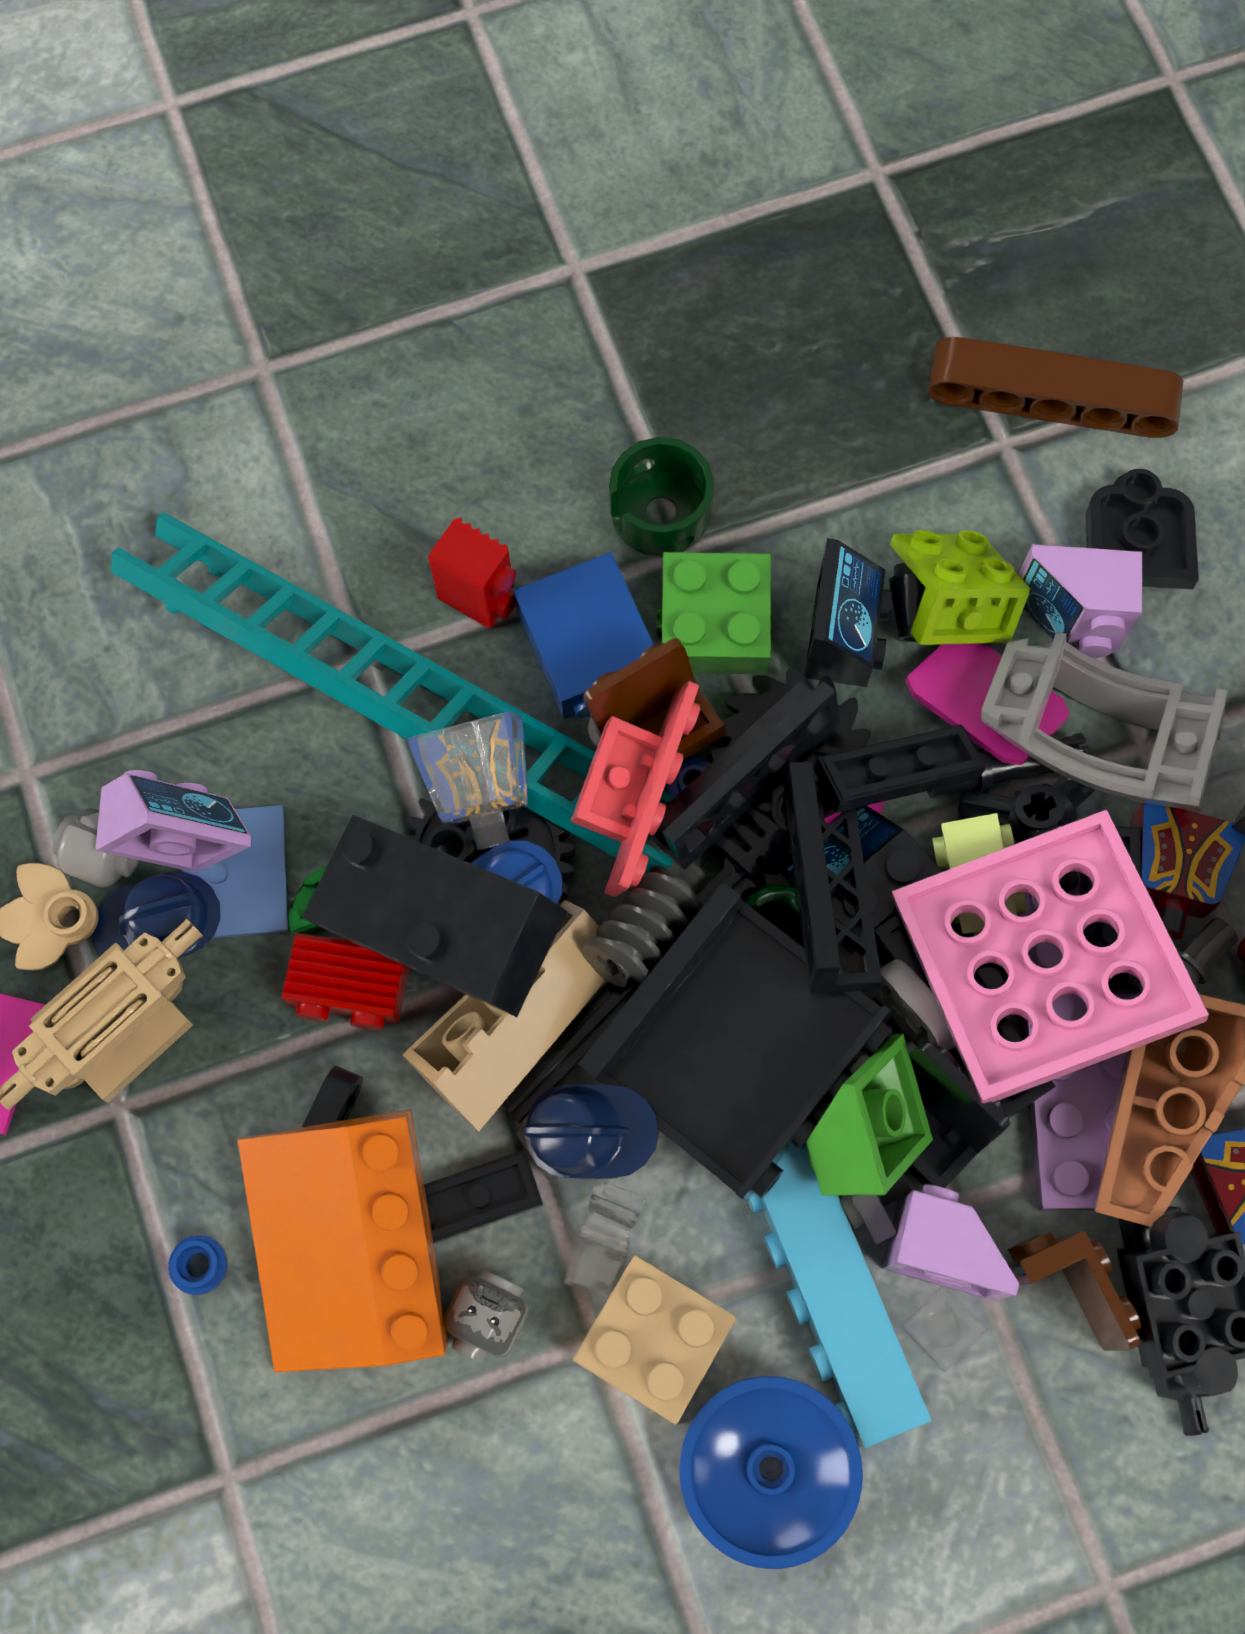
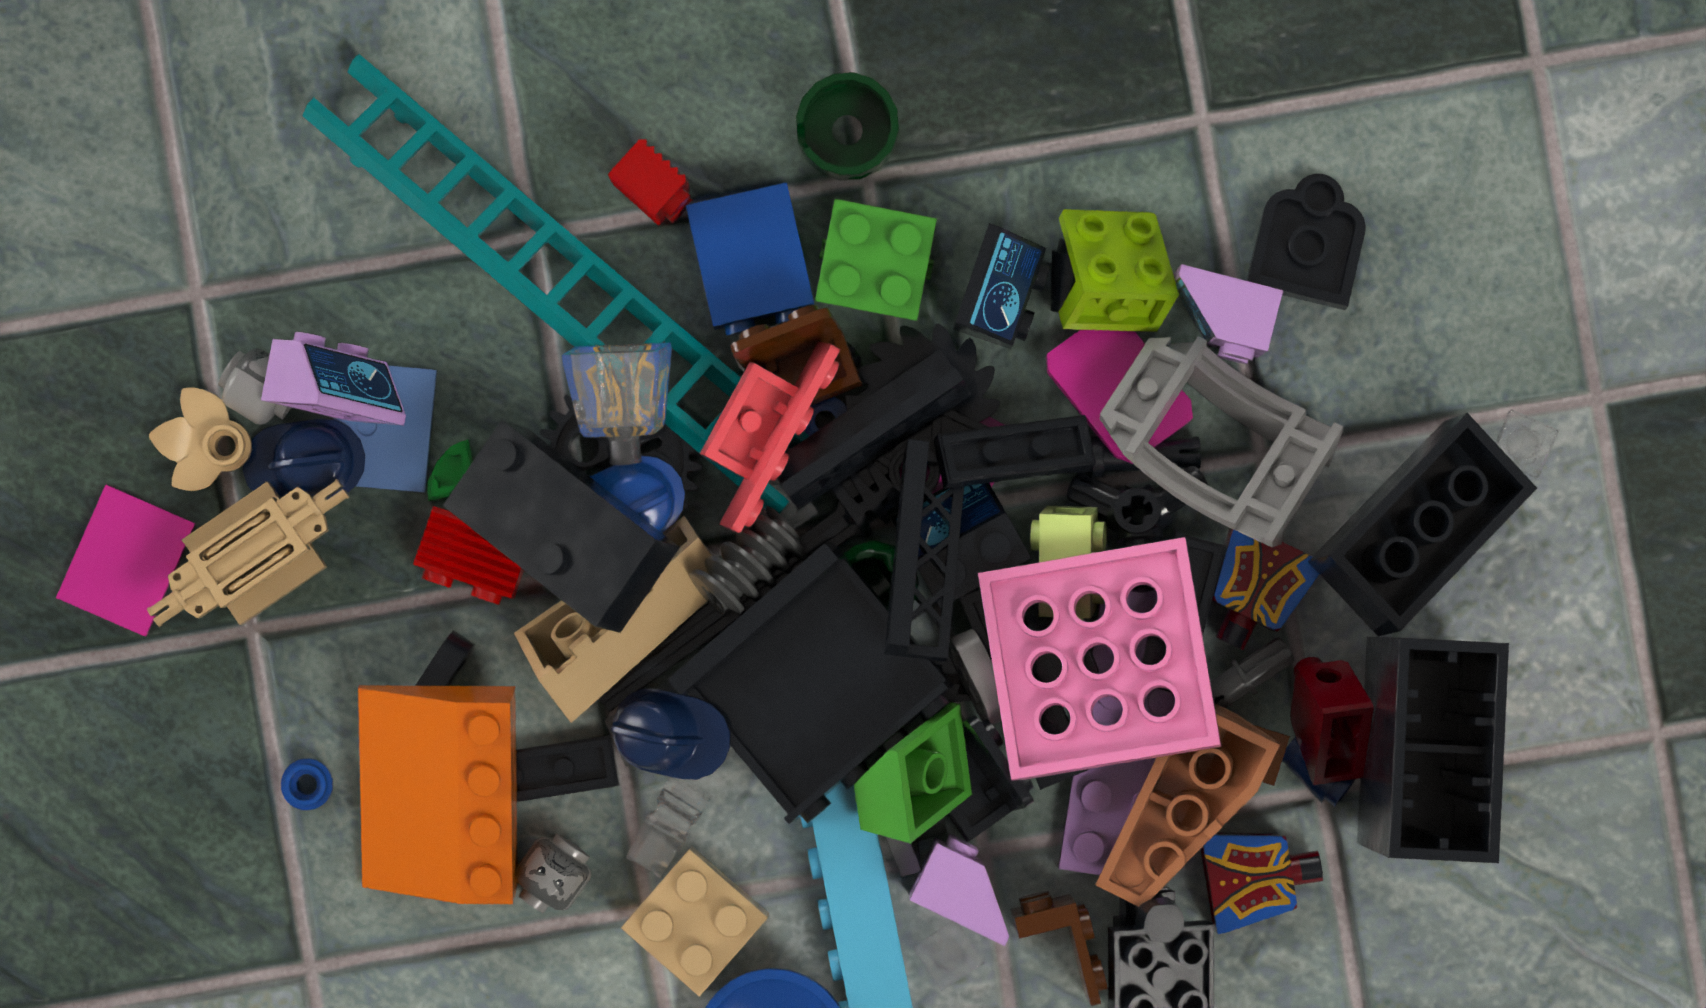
camera: 10 degrees right, 15 degrees up
(1056, 387) = (1262, 74): reddish brown beam -> none

